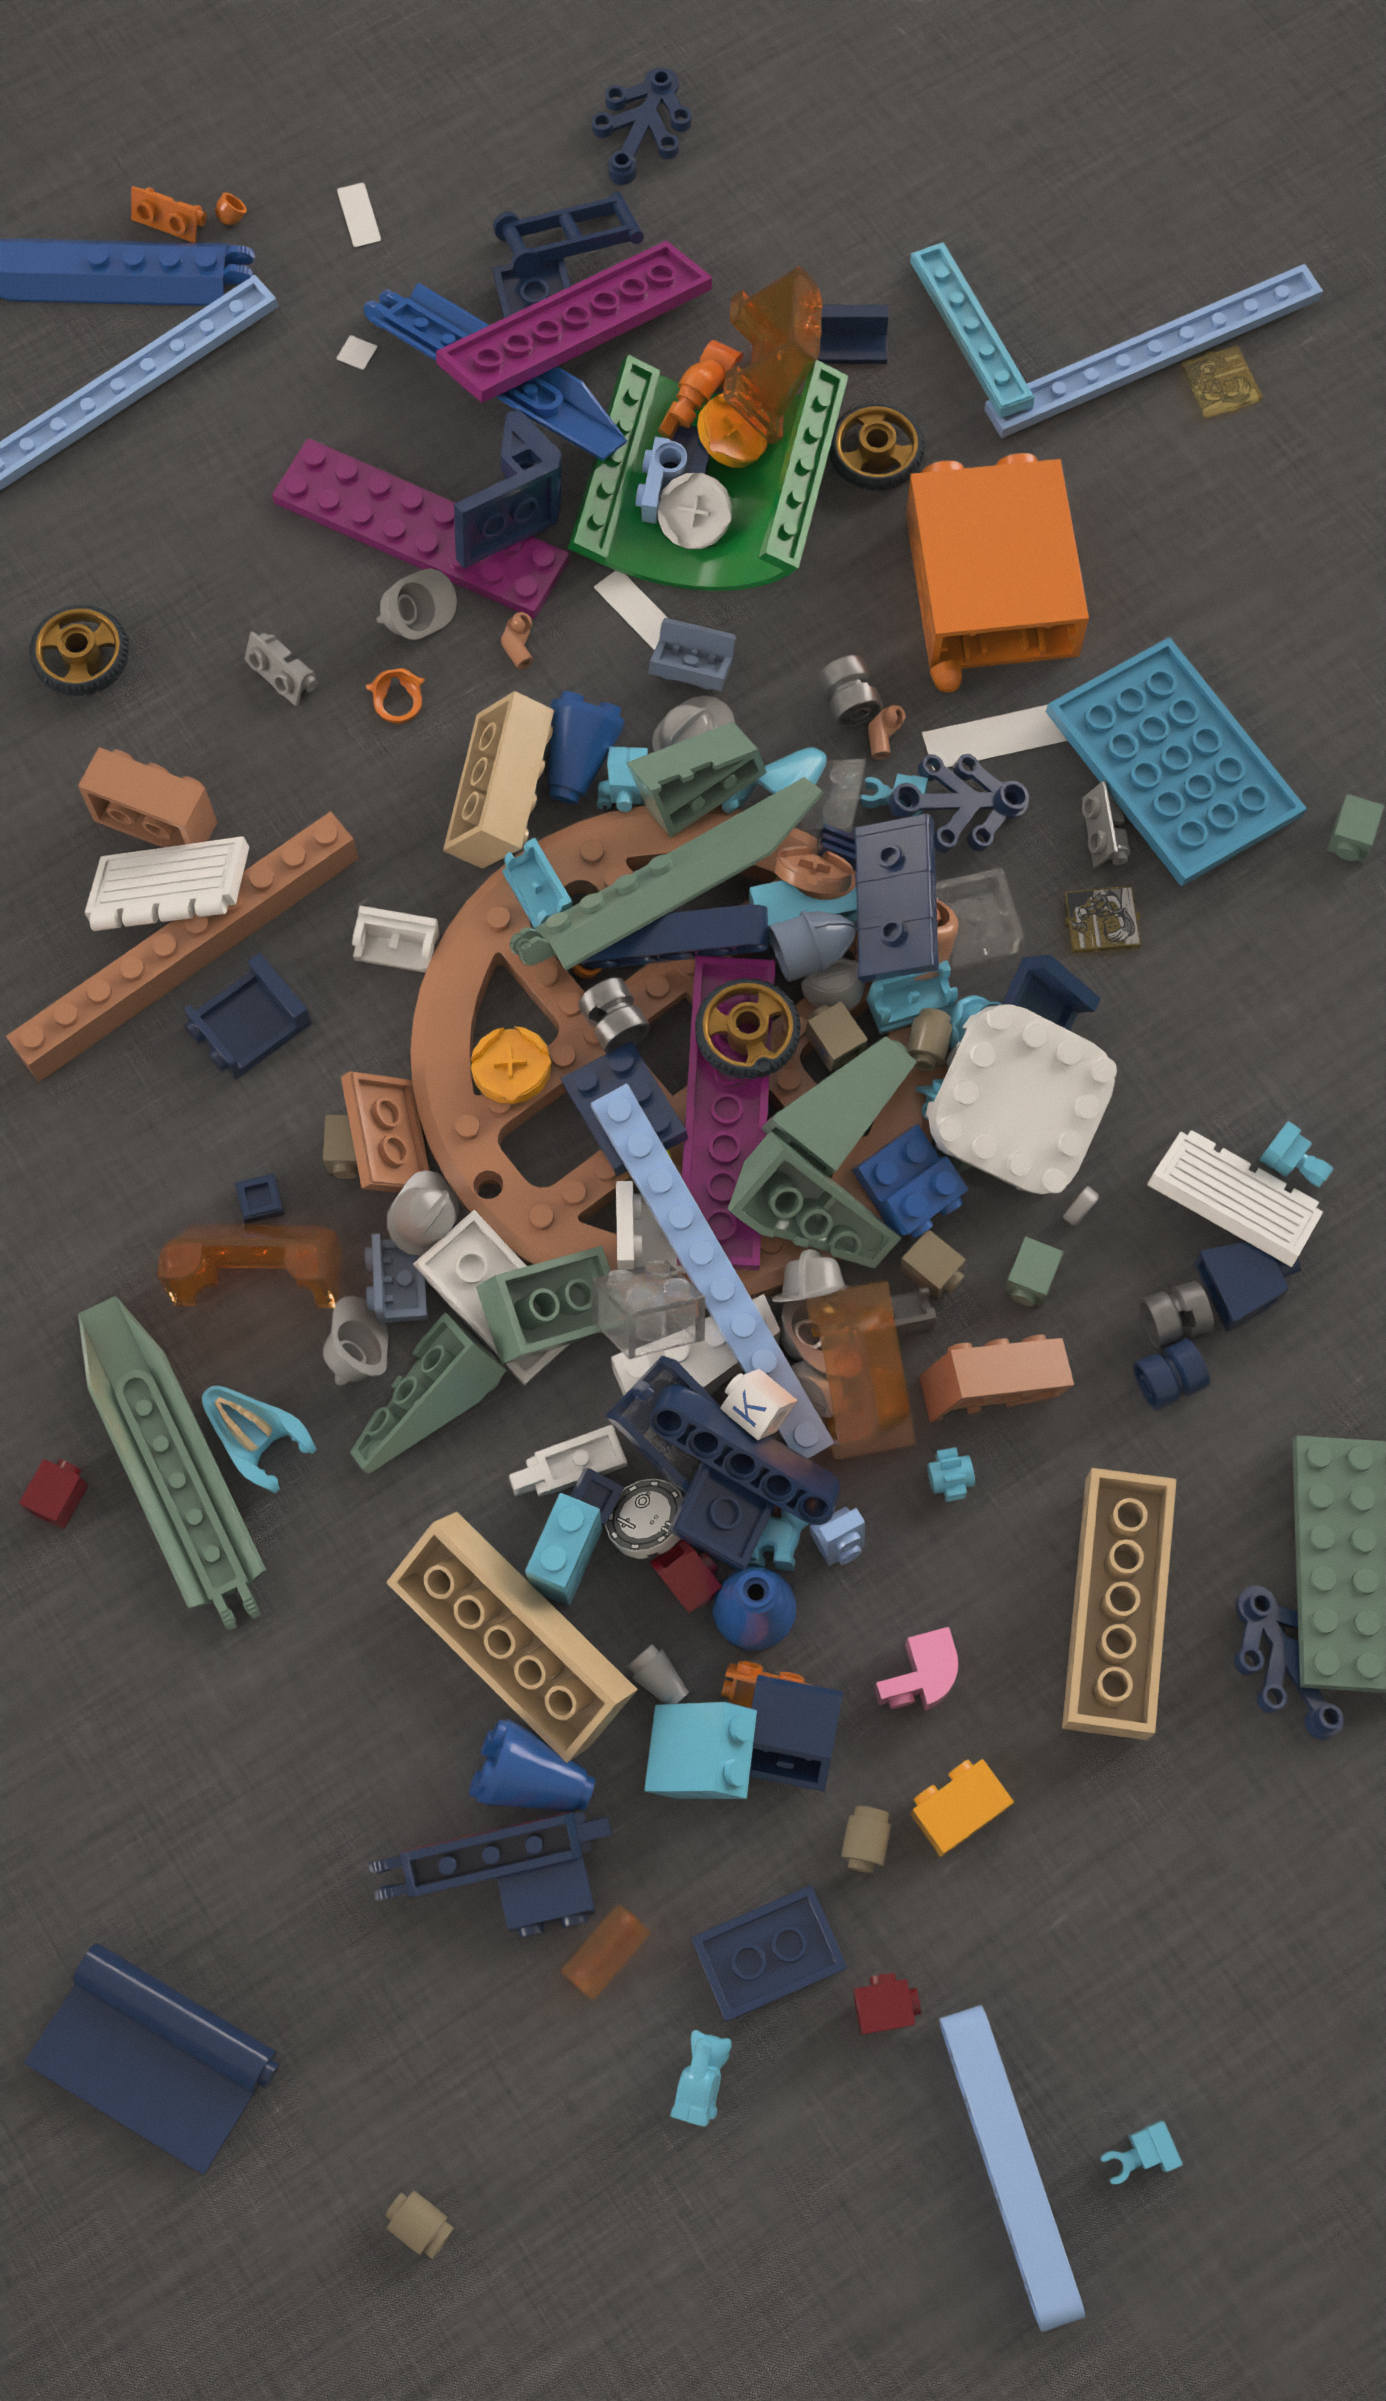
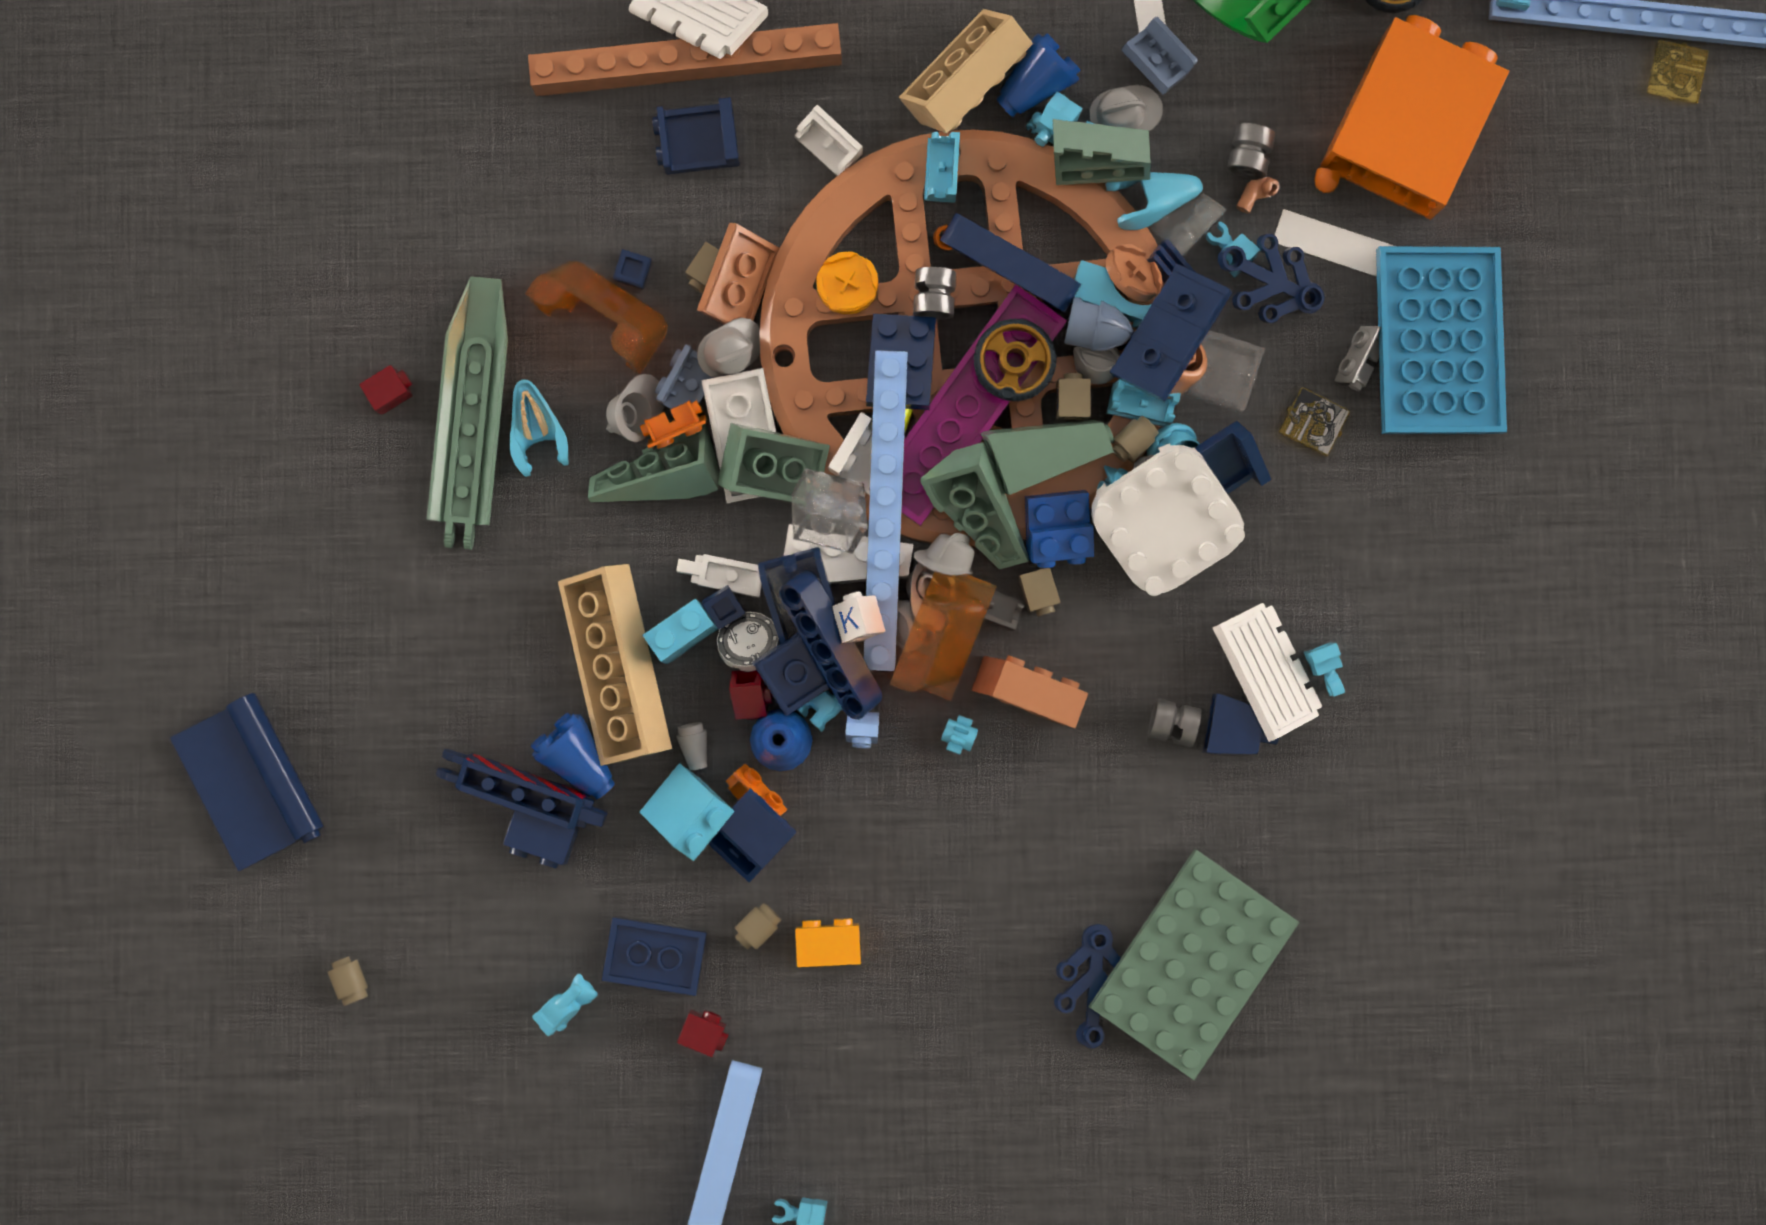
camera: 30 degrees right, 15 degrees up
(422, 1319) = (685, 421): none -> orange hinge
(605, 1951) = (556, 892): clear orange hinge -> none
(667, 881) = (1031, 220): sand green hinge -> none
(933, 1674) = (866, 852): bright pink brick -> none
(1033, 1272) = (1100, 636): sand green brick -> none
(1081, 1206) = (1162, 611): light grey tile -> none
(1119, 1604) = (1009, 884): tan brick -> none
(1177, 1371) = (1144, 760): dark blue wheel -> none
(1355, 828) = (1529, 466): sand green brick -> none

